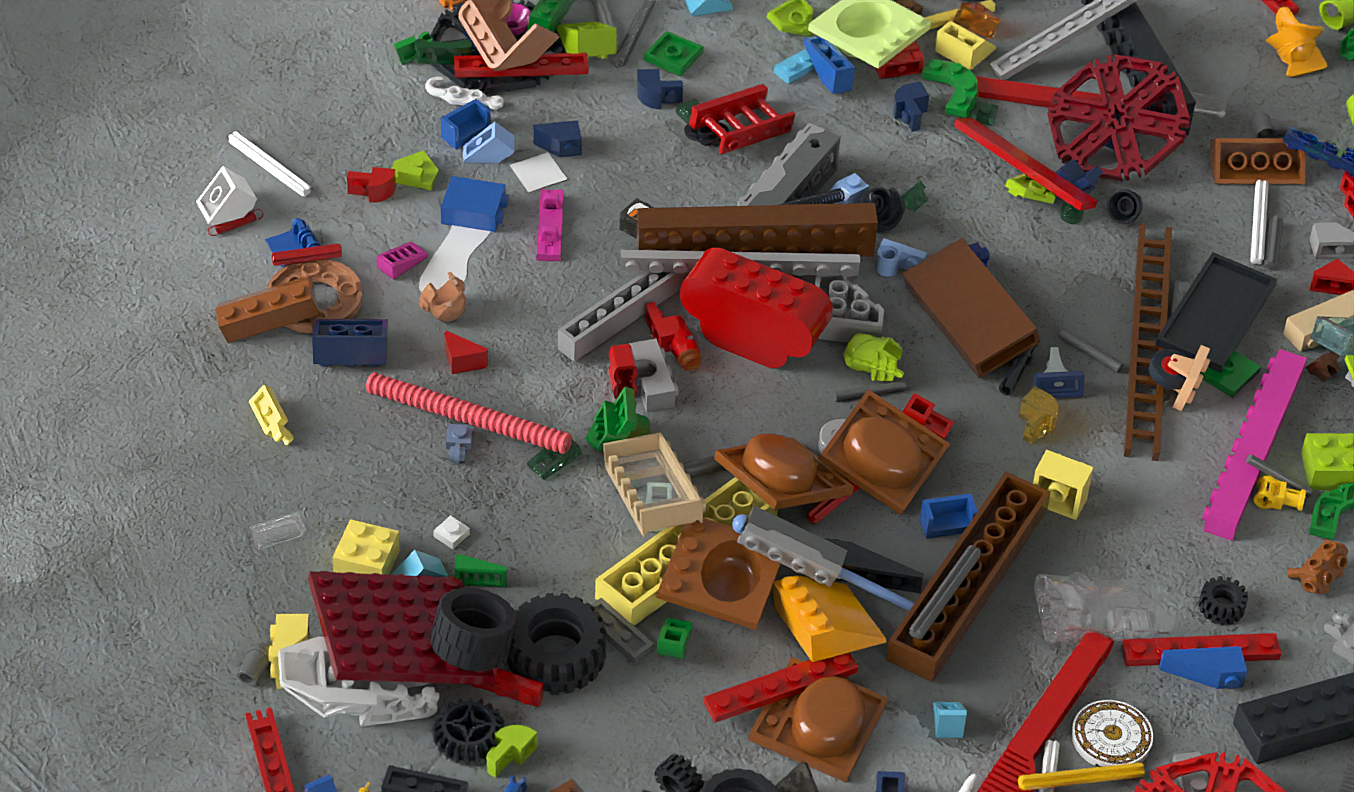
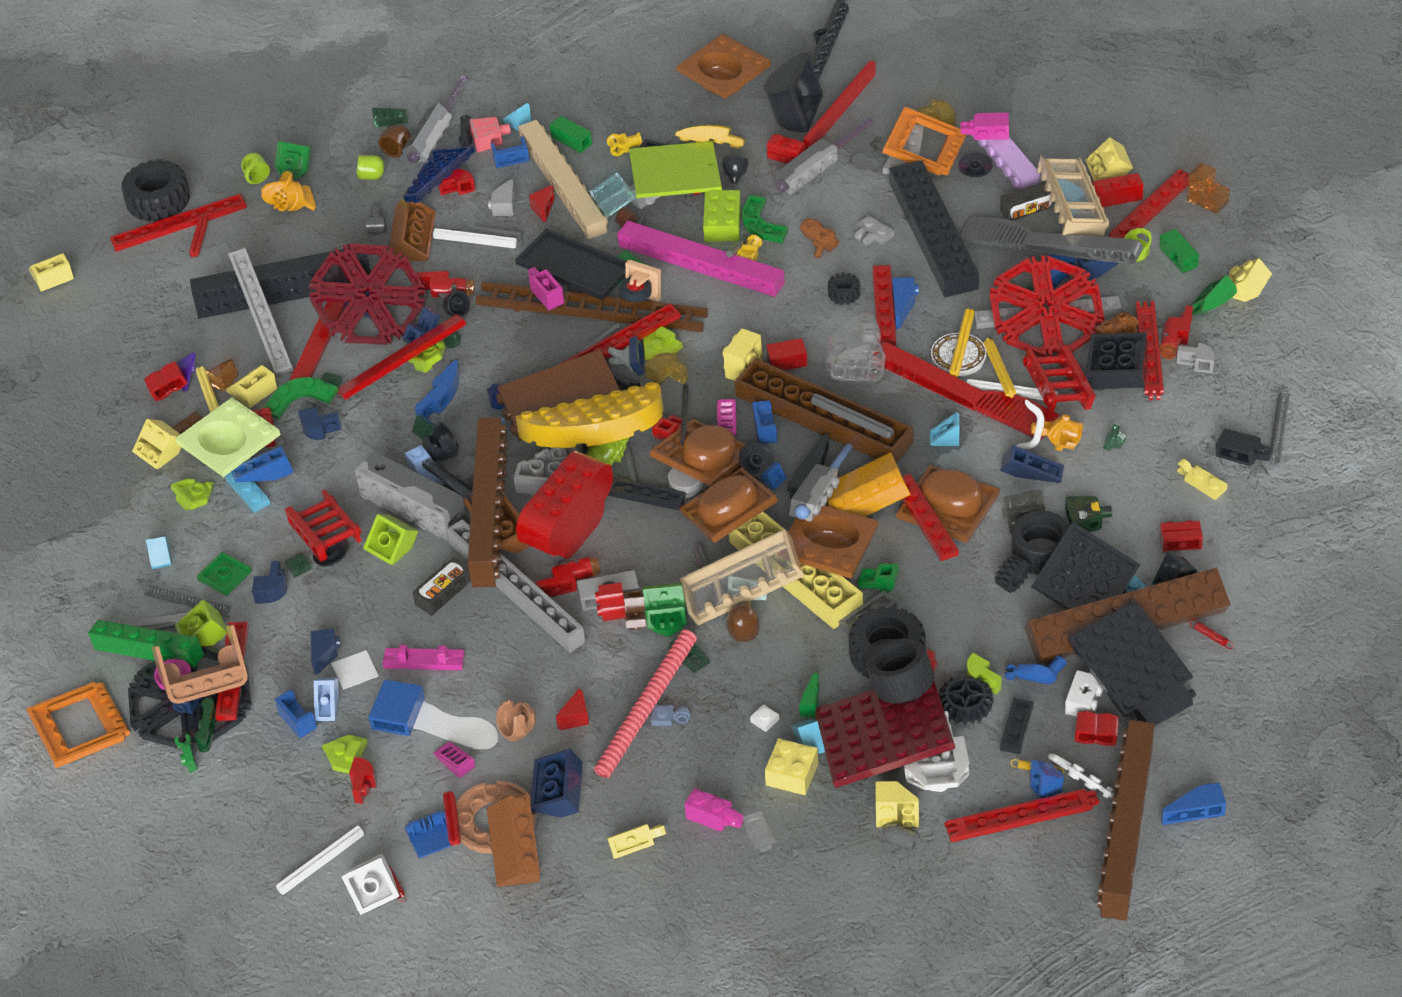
camera: 80 degrees left, 0 degrees up
(304, 479) = (711, 811): none -> dark pink hinge
(462, 96) = (253, 720): white piece -> none
(592, 498) = (743, 622): none -> reddish brown piece
(595, 394) = (635, 610): none -> reddish brown brick
(730, 179) = (390, 538): none -> lime slope
(789, 263) = (514, 511): light grey plate -> none
(816, 405) = (647, 493): none -> black plate
(852, 528) = (774, 476): none -> blue tile
(870, 500) = (758, 453): none -> black dish
(920, 341) = (593, 420): none -> yellow brick
(959, 433) = (684, 413): none -> black axle
(972, 483) = (729, 420): none -> dark pink slope
(978, 209) = (443, 391): none -> blue slope
(1079, 538) = (787, 354): none -> red brick
(1088, 410) = (661, 342): none -> lime plate
(1096, 375) = (640, 329): none -> red tile
(1127, 732) = (961, 342): none -> yellow axle
(1154, 277) = (546, 288): none -> dark pink hinge
(1161, 196) = (441, 283): none -> red plate

